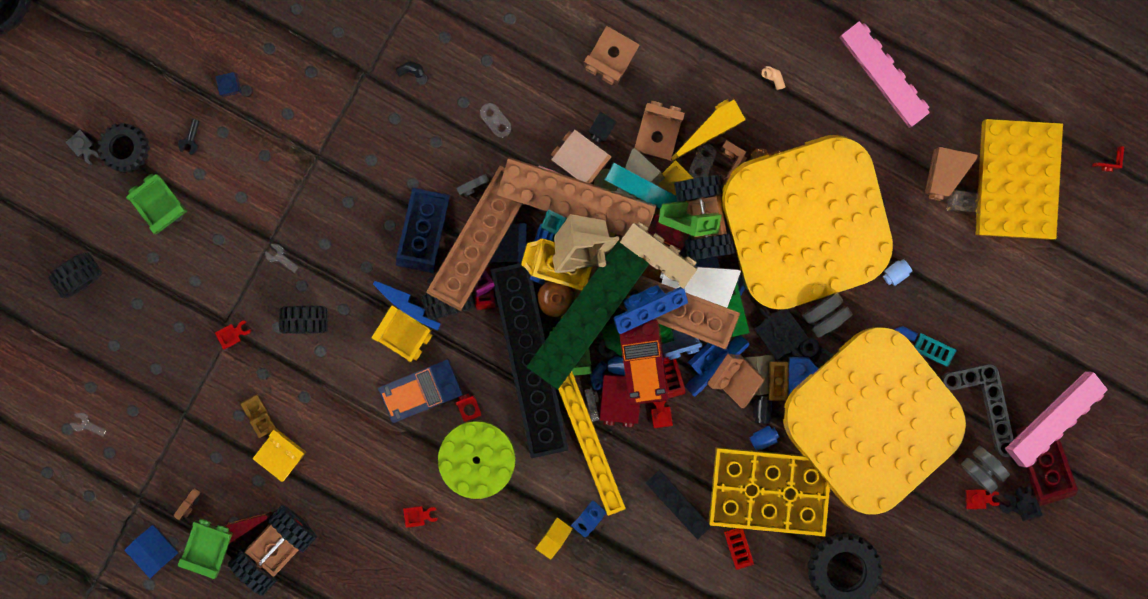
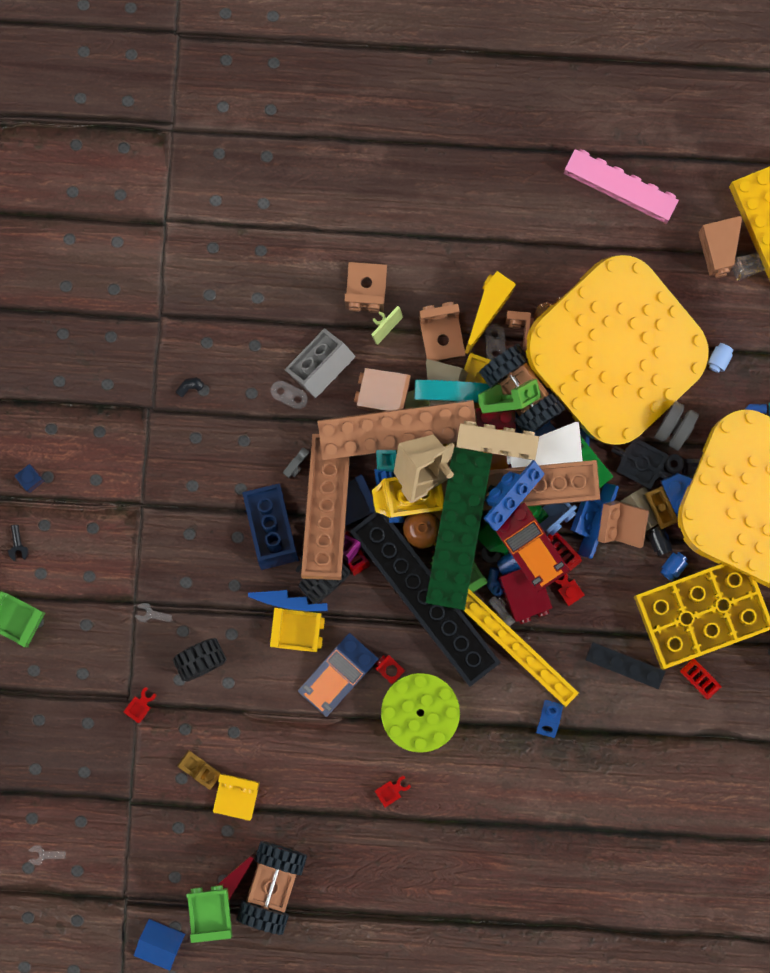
camera: 20 degrees left, 5 degrees down
(185, 508) = (172, 889): nougat plate -> none
(537, 105) = (320, 363): none -> light grey slope
(554, 538) = (526, 752): yellow slope -> none
(602, 127) = (389, 355): black brick -> none
(612, 99) = (386, 324): none -> yellowish green piece
(774, 75) = (521, 234): light nougat arm -> none

